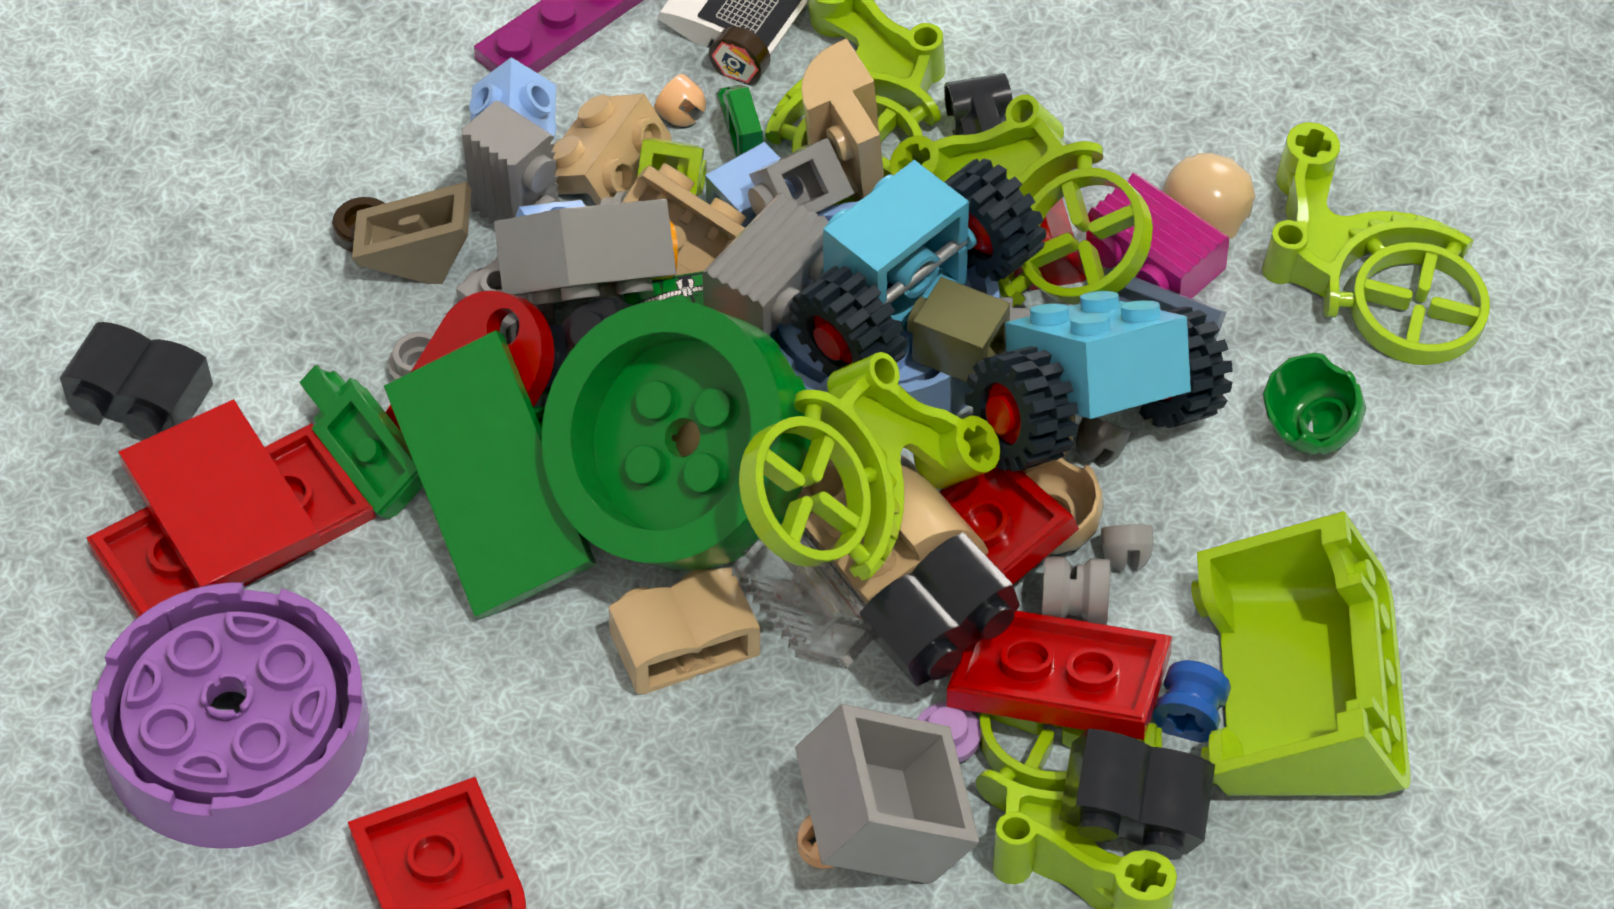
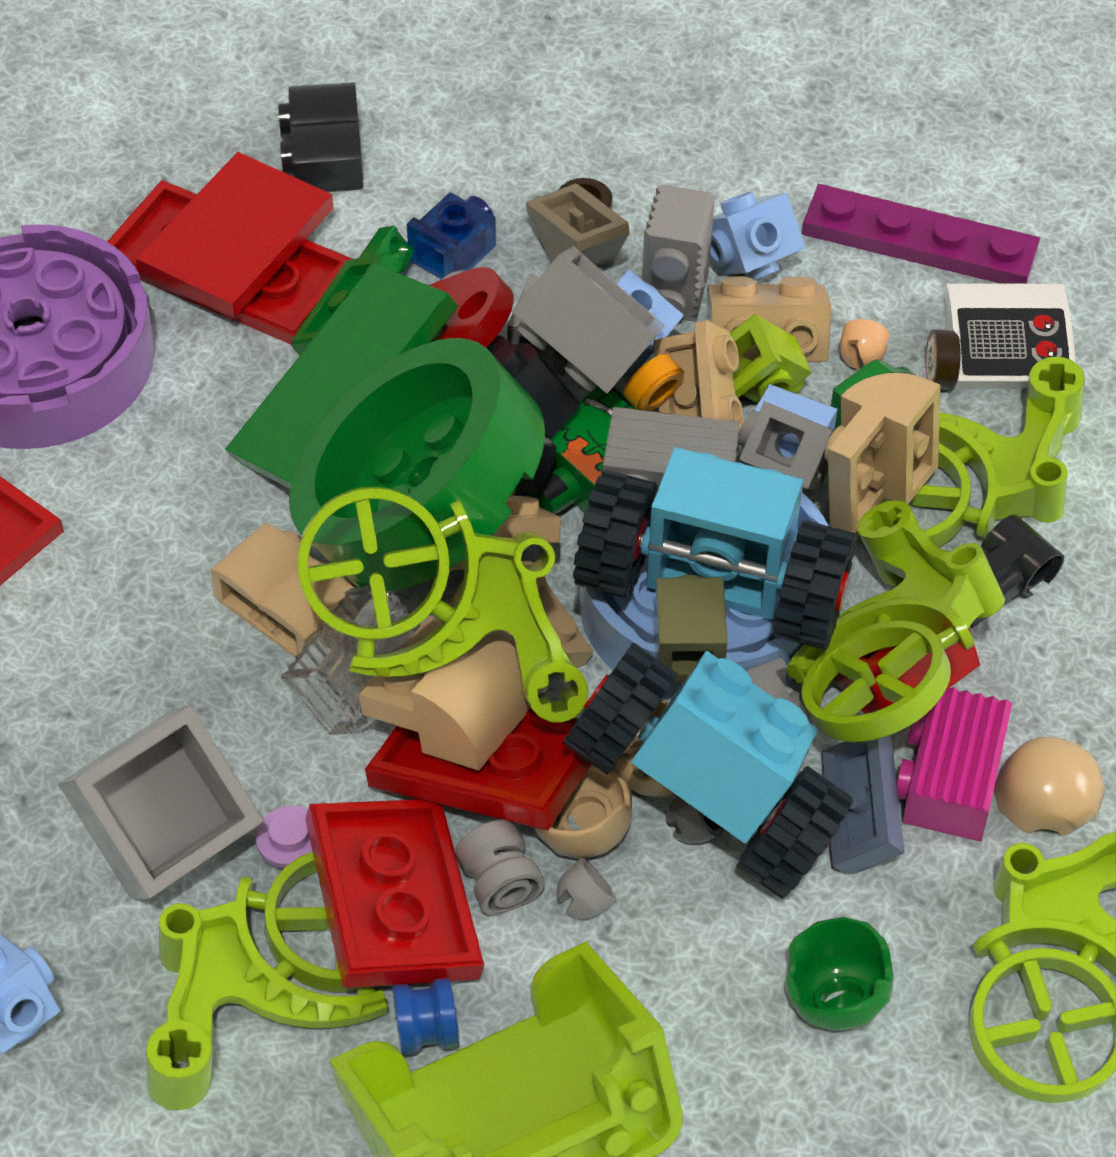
camera: 60 degrees right, 0 degrees up
(340, 324) = (456, 227): none -> clear blue brick
(940, 610) = (378, 754): black brick -> none
(1137, 793) = (269, 1005): black brick -> none

